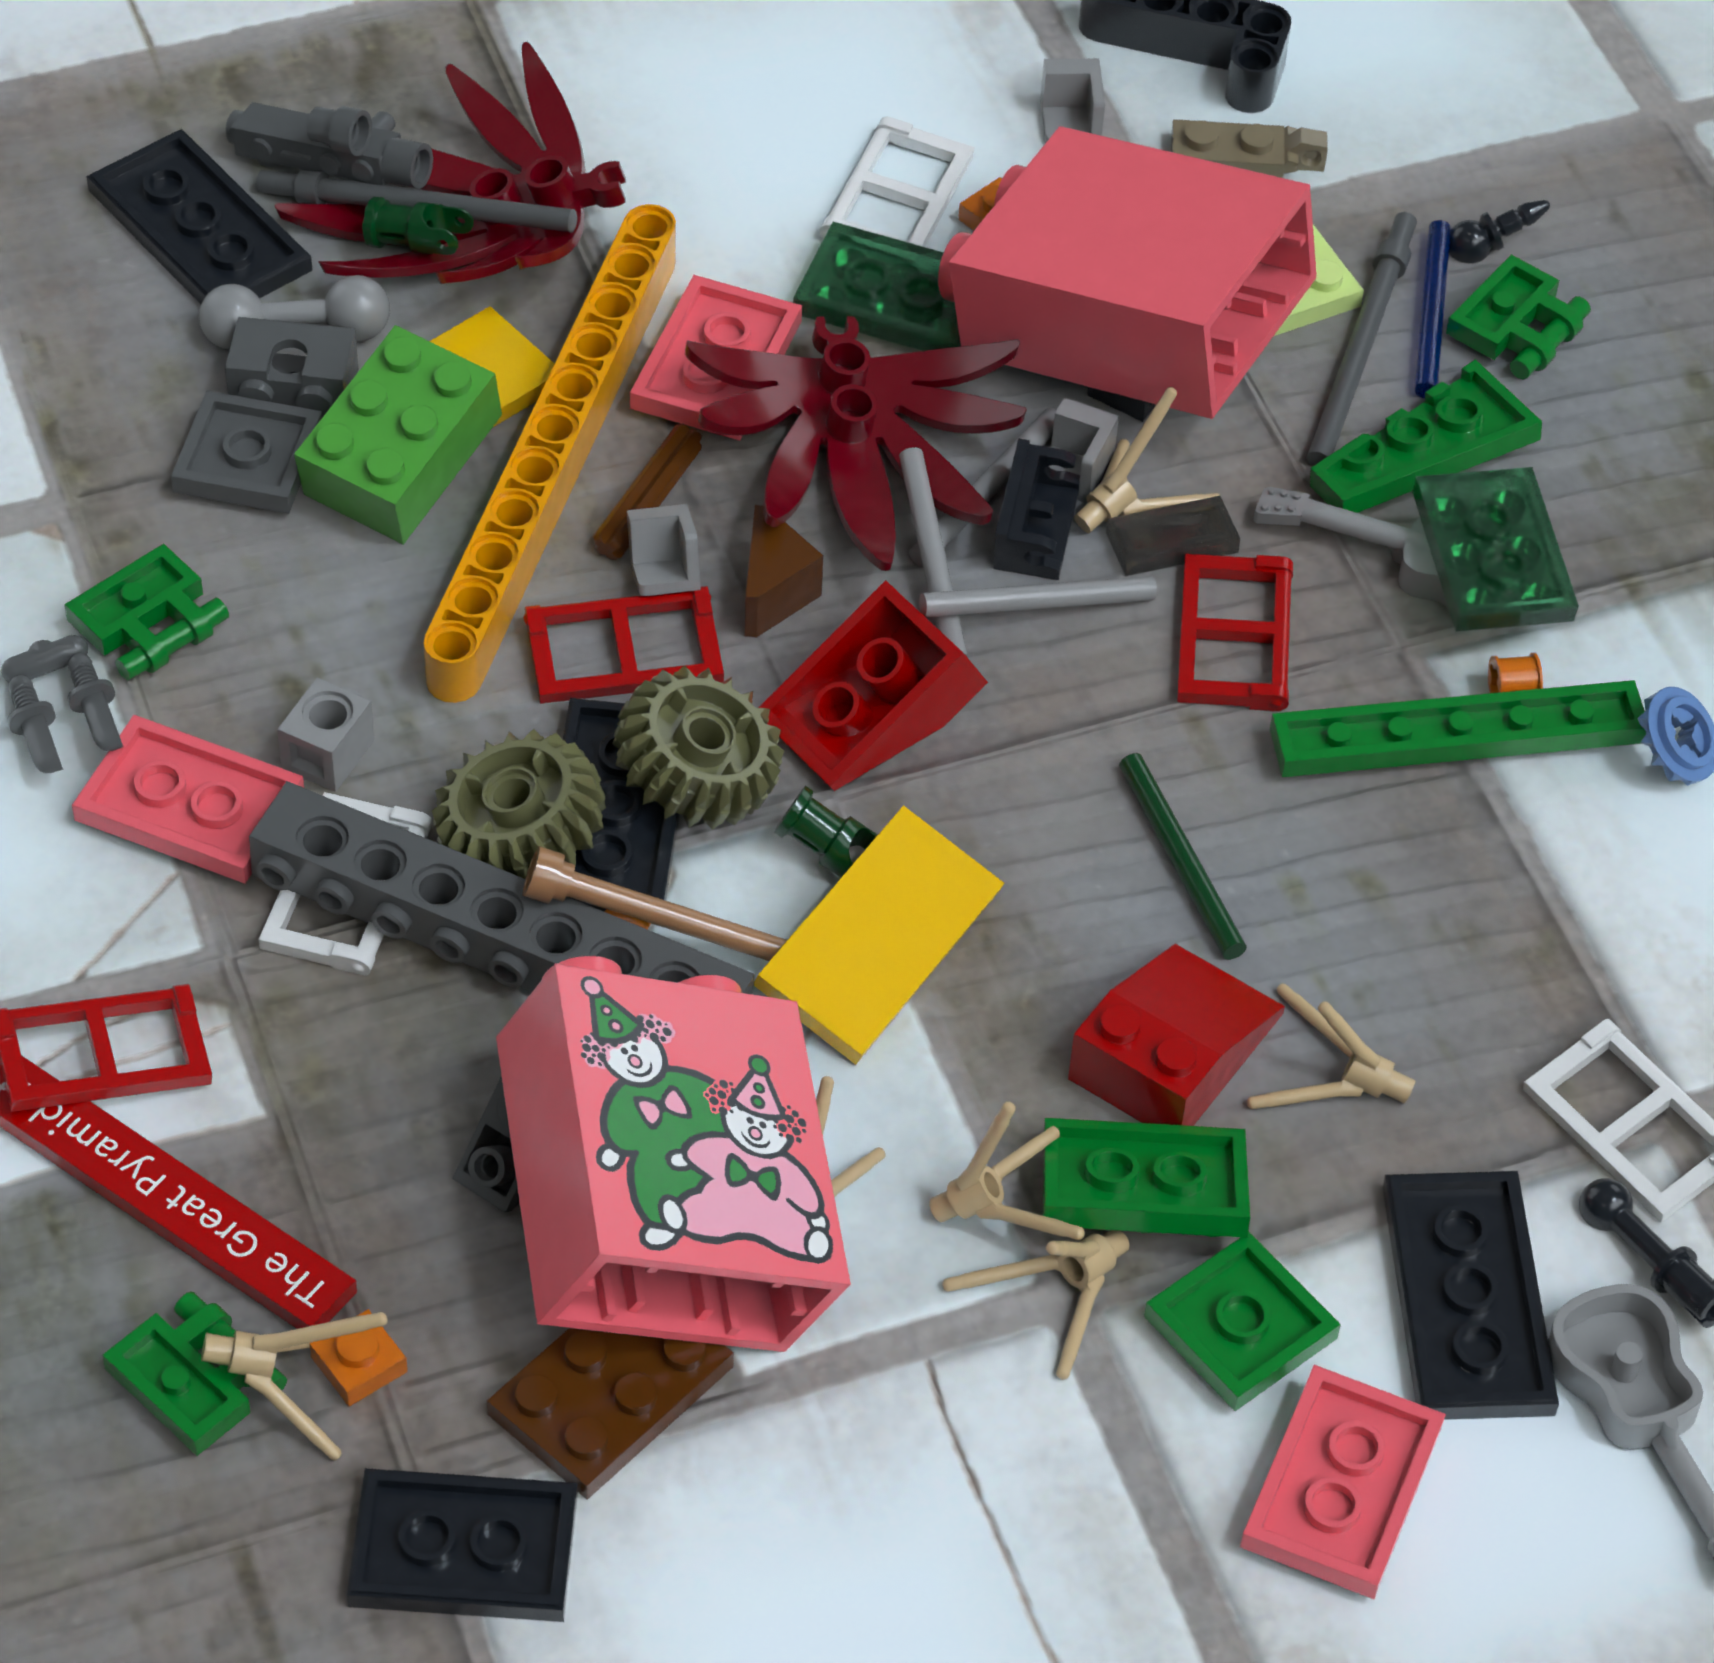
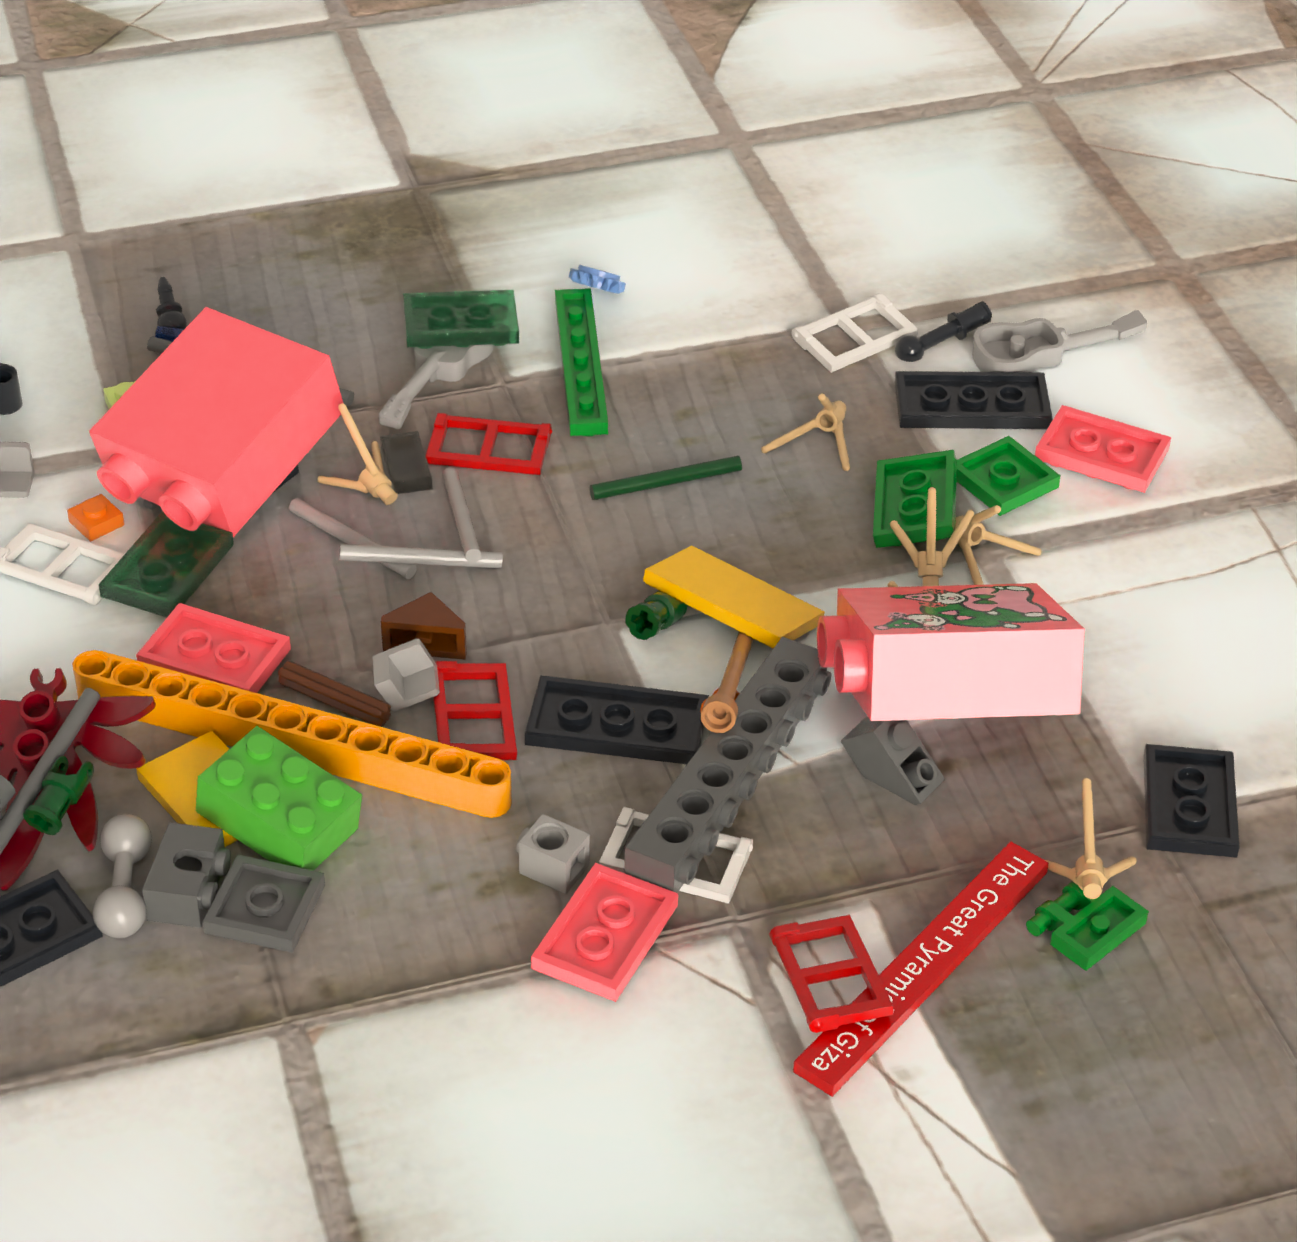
camera: 85 degrees left, 10 degrees down
(88, 697) = (508, 983): dark grey piece -> none
(136, 599) = (412, 968): green plate -> none
(359, 1362) = (1059, 843): orange plate -> none
(520, 800) = (632, 722): olive gear -> none
(603, 1399) = (1077, 744): reddish brown plate -> none
(698, 747) = (589, 659): olive gear -> none
(850, 408) = (302, 593): dark red plant -> none
(872, 689) = (535, 587): red slope -> none
(1036, 512) = (386, 515): black hinge -> none
(1090, 437) = (336, 488): light grey panel -> none
(1170, 1038) = (812, 486): red slope -> none
(1252, 146) = (63, 406): dark tan hinge -> none
(1443, 435) = (352, 350): green wing -> none
(1505, 306) = (250, 303): green plate -> none
(1514, 673) = (548, 344): orange axle -> none

